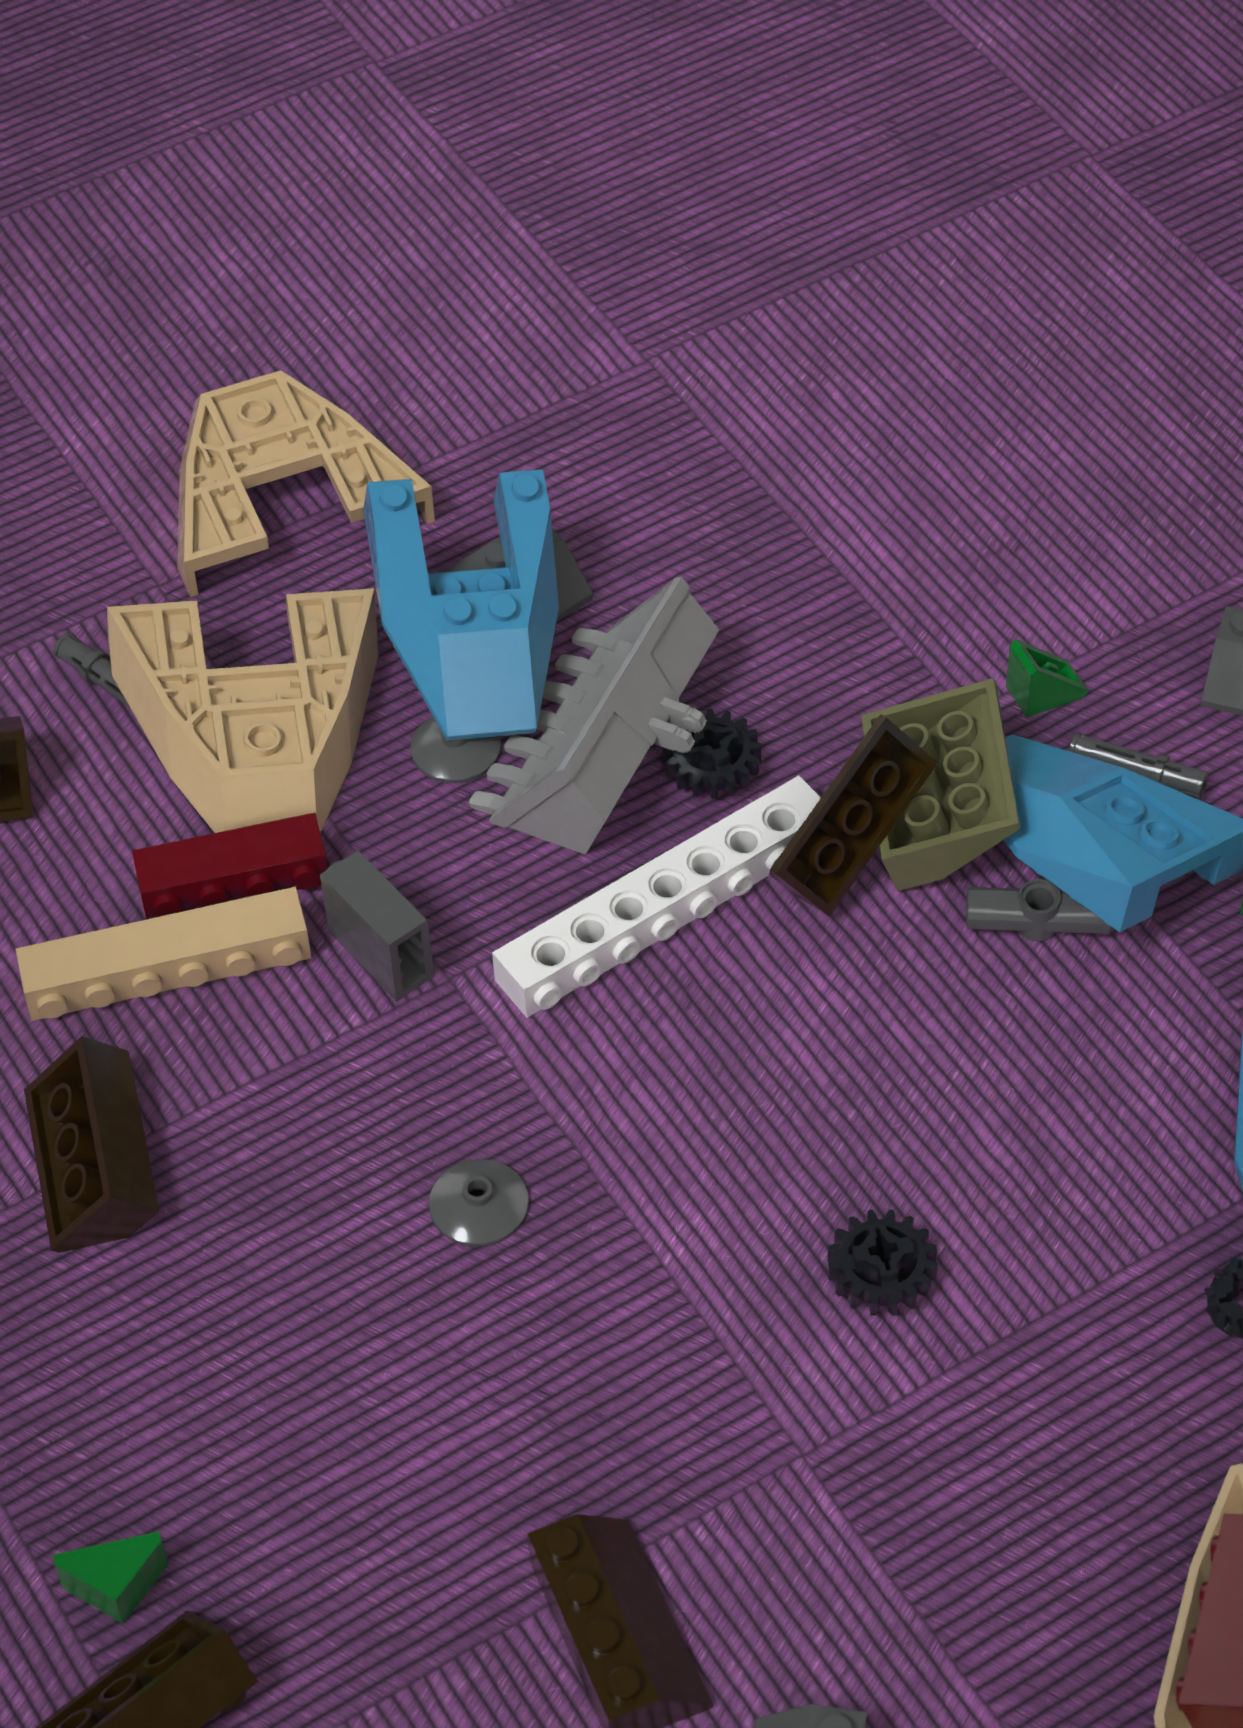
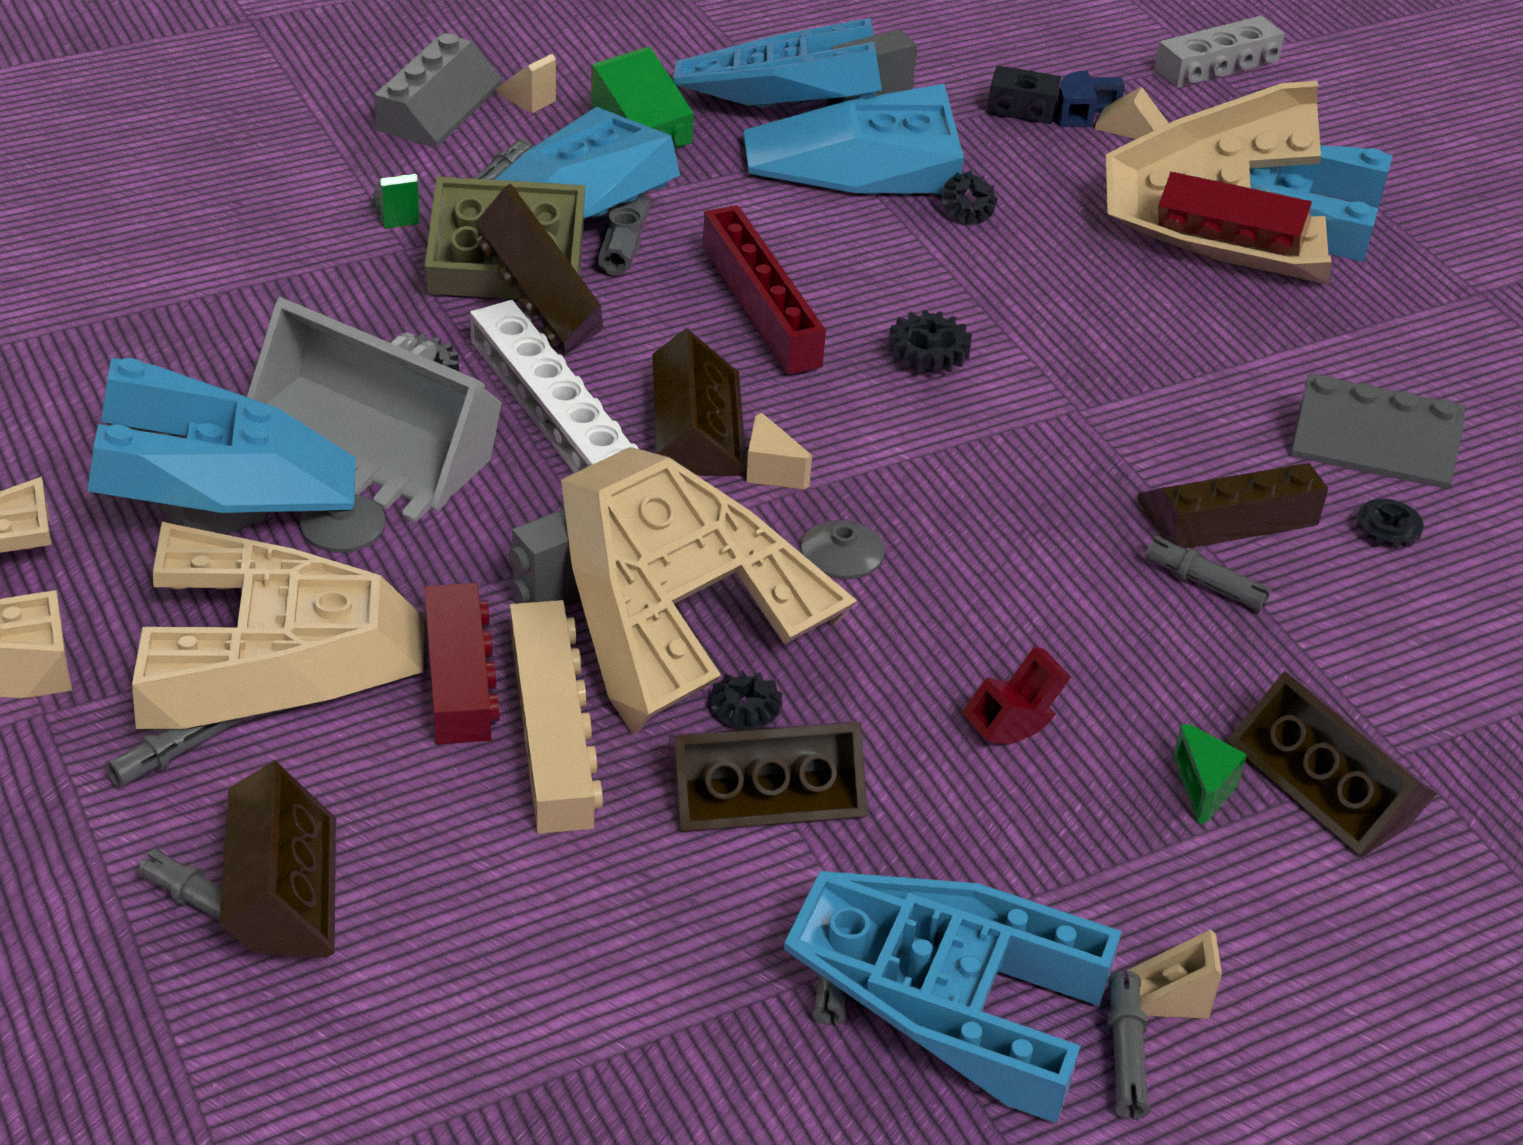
camera: 90 degrees left, 10 degrees down
(201, 1371) = (1018, 708): none -> dark red brick
(218, 1140) = (752, 713): none -> black gear
(365, 987) = (655, 535): none -> tan piece
(479, 1574) = (1192, 566): none -> dark grey pin
(617, 1106) = (776, 457): none -> tan slope
(688, 1028) = (698, 408): none -> dark brown slope
(935, 1061) = (764, 290): none -> dark red brick

